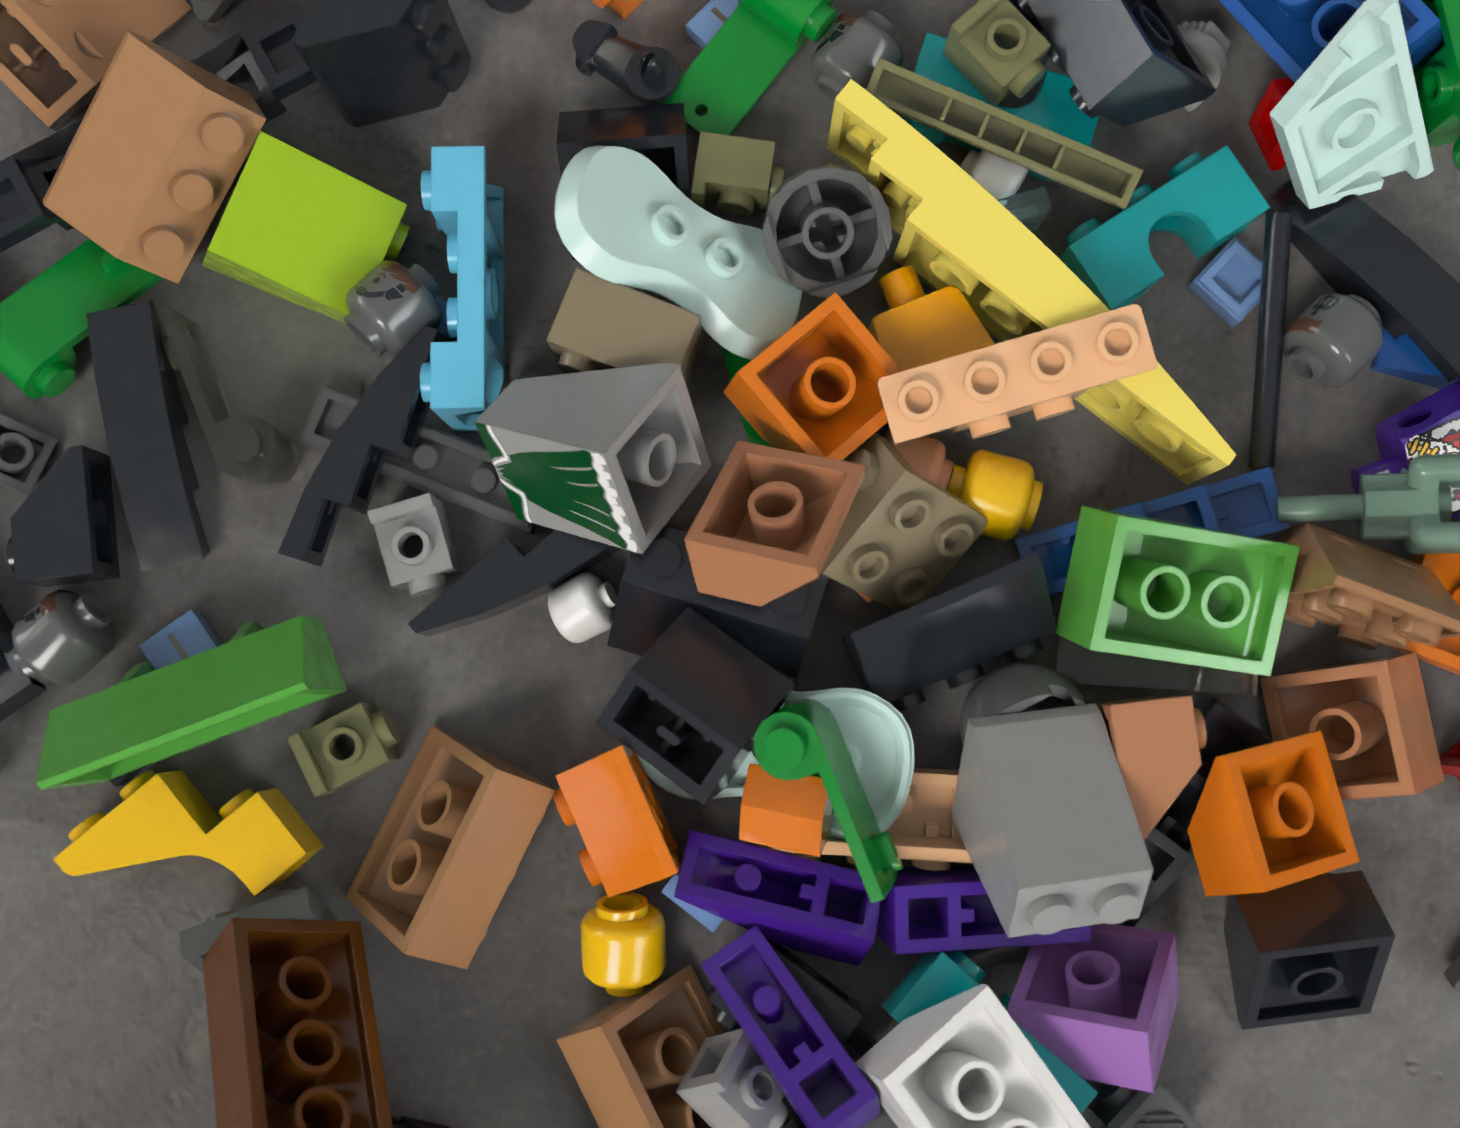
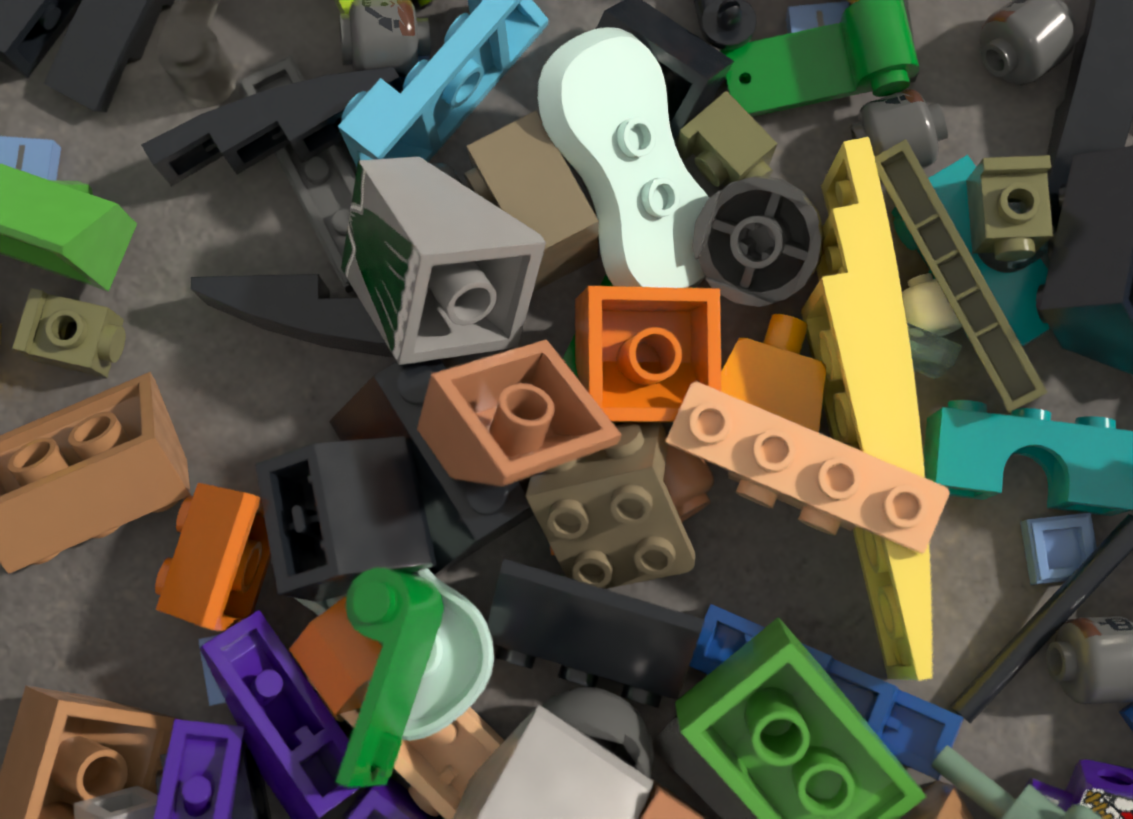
camera: 40 degrees right, 5 degrees down
(438, 559) = (266, 243): light grey brick -> none
(582, 607) = (332, 375): white piece -> none
(623, 943) = (139, 657): yellow head -> none
(1000, 490) = (725, 552): yellow head -> none

